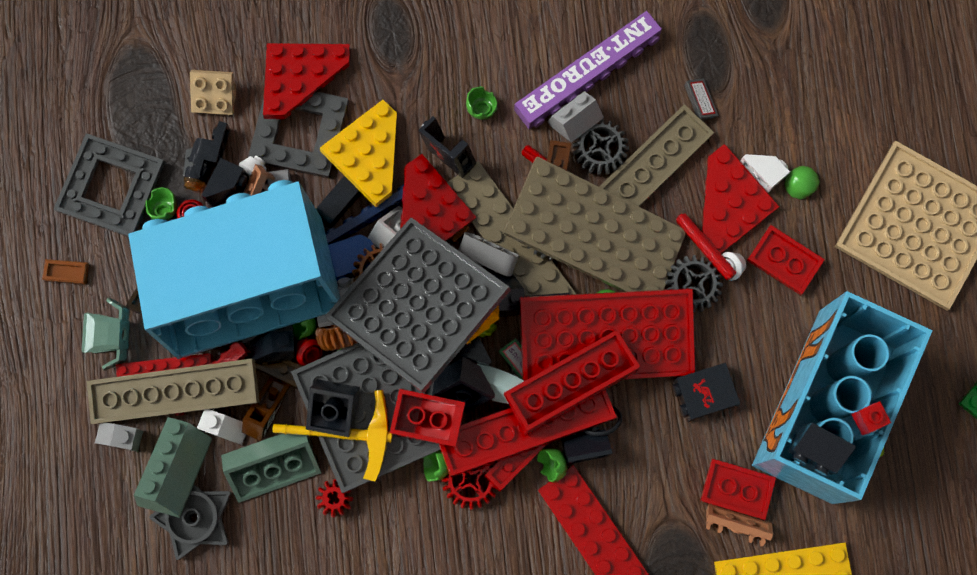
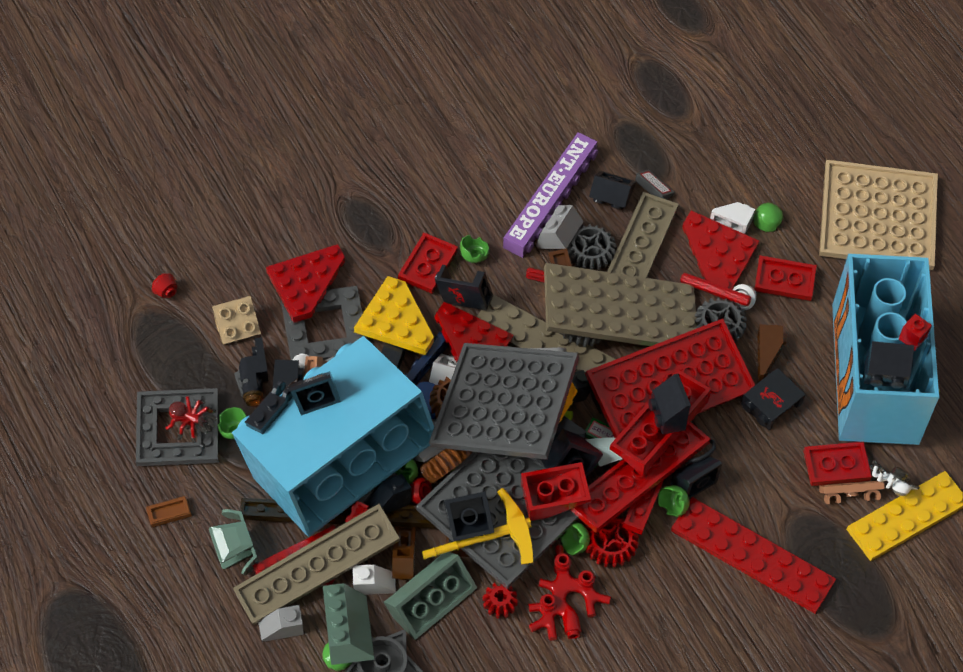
camera: 25 degrees left, 20 degrees down
(119, 184) = (189, 418): none -> animal
(160, 26) = (164, 285): none -> red cone
(173, 225) = (269, 408): none -> black hinge
(216, 230) = (315, 393): none -> black slope
(399, 507) = (560, 589): none -> red plant
(429, 97) = (426, 261): none -> red plate
(582, 377) = (670, 405): none -> black slope
(654, 88) = (612, 189): none -> black slope
(732, 330) = (769, 346): none -> reddish brown slope
(786, 534) = (896, 478): none -> animal

